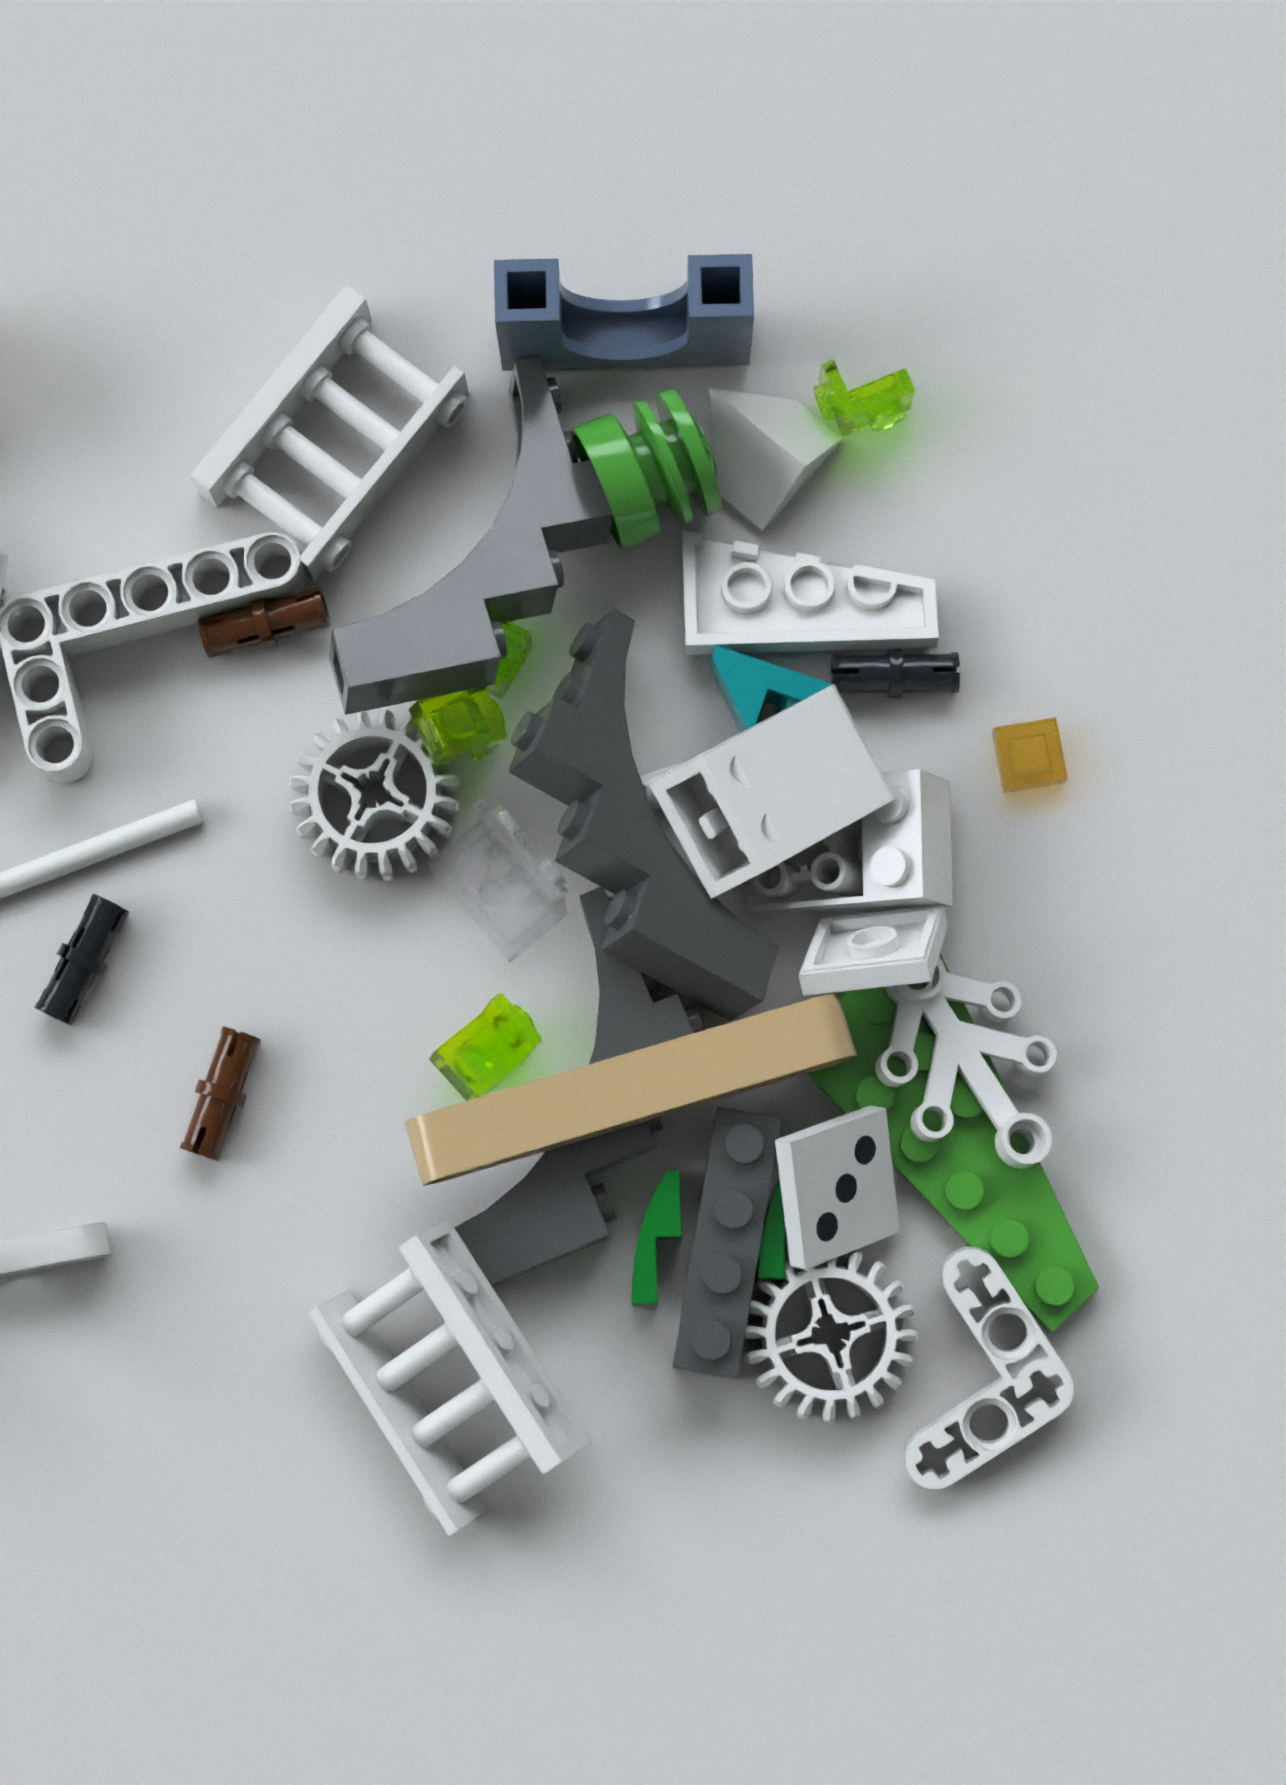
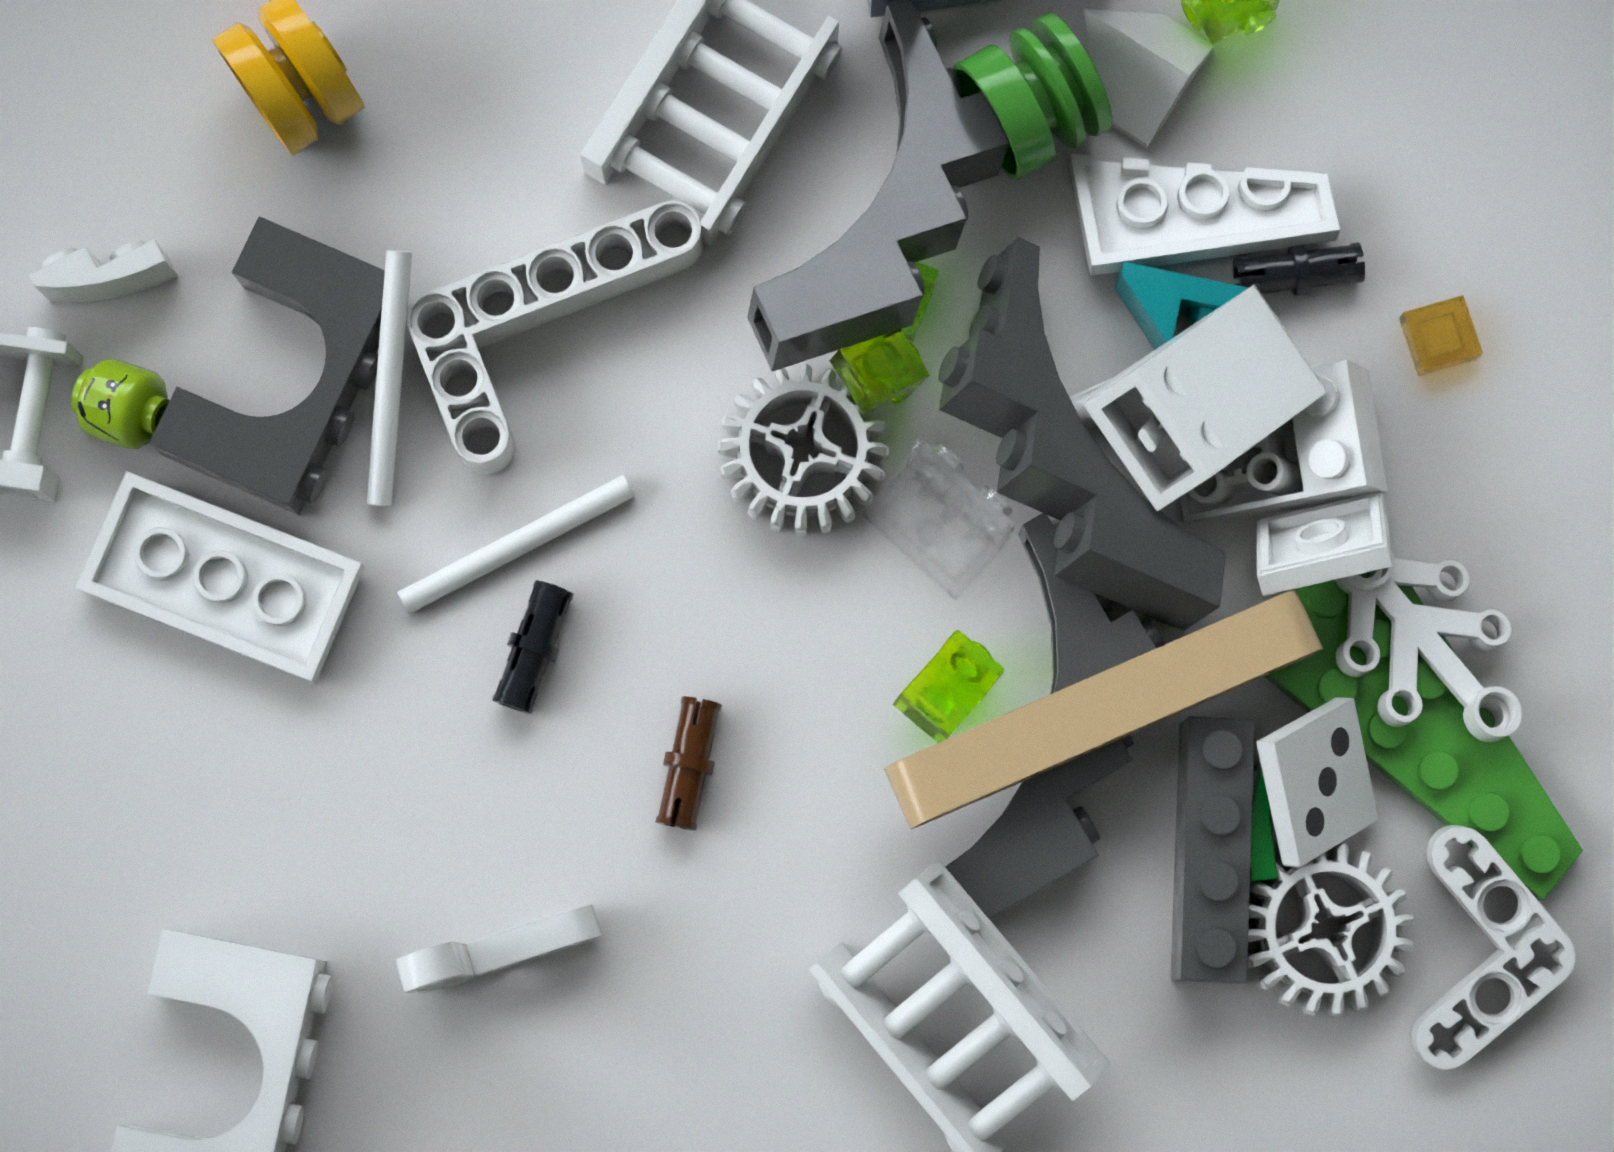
camera: 10 degrees left, 0 degrees up
(264, 622) = (669, 292): reddish brown pin -> none
(660, 1222) = (1143, 836): green slope -> none

